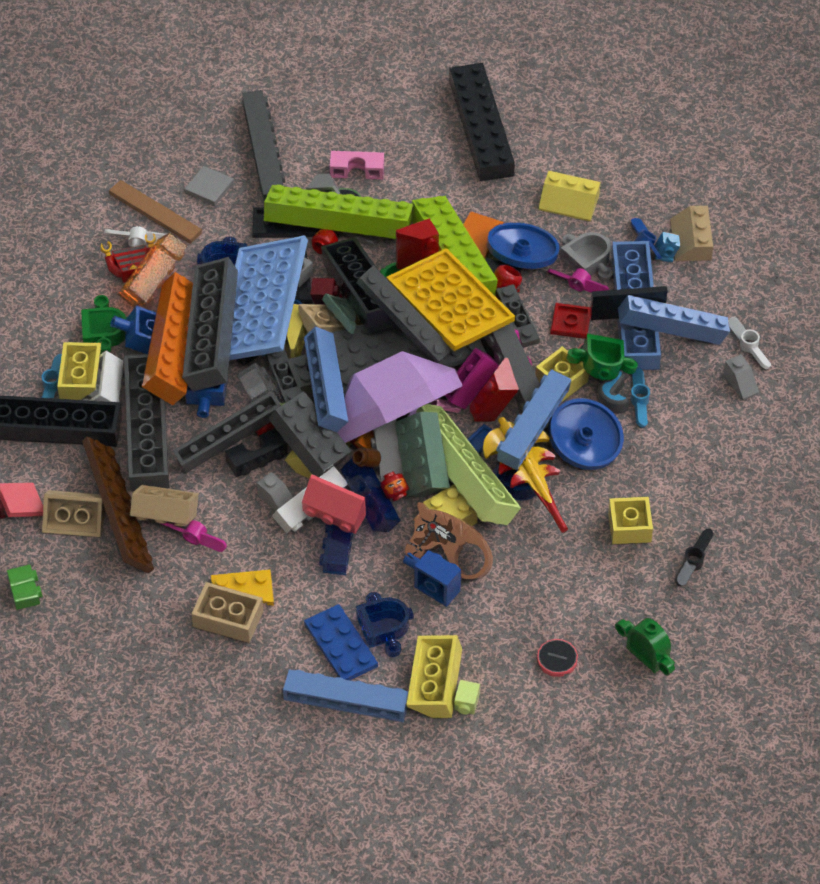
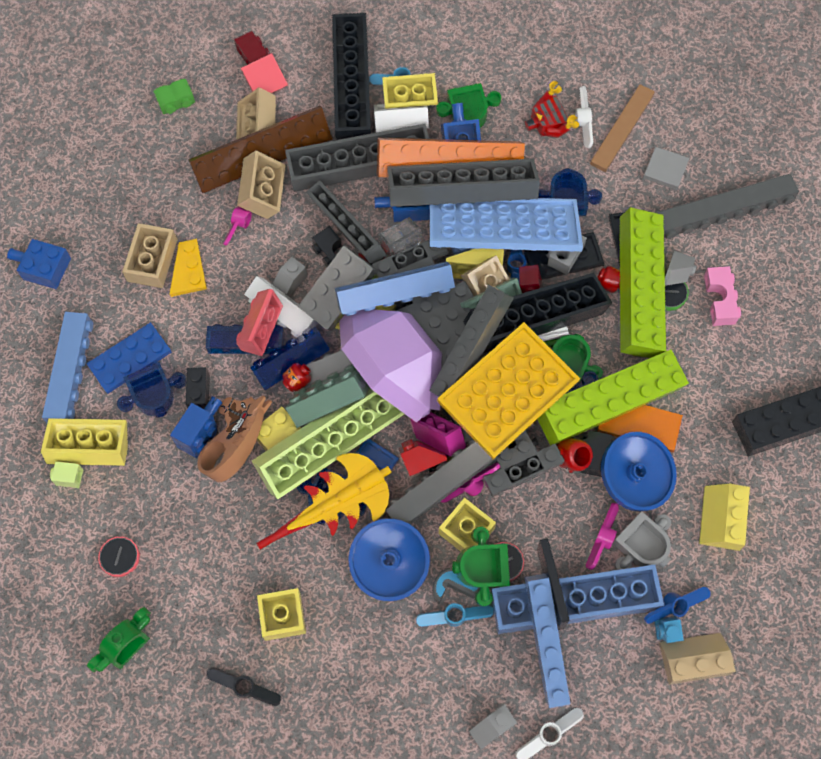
camera: 85 degrees right, 15 degrees up
(152, 270) = (532, 128): clear orange piece -> none
(215, 717) = (41, 263): none -> blue brick
(366, 457) = (318, 344): reddish brown brick -> none
(389, 578) = (197, 387): none -> black brick
(416, 243) = (594, 358): red slope -> none
(533, 419) = (382, 498): medium blue brick -> none
(570, 320) = (553, 527): red tile -> none

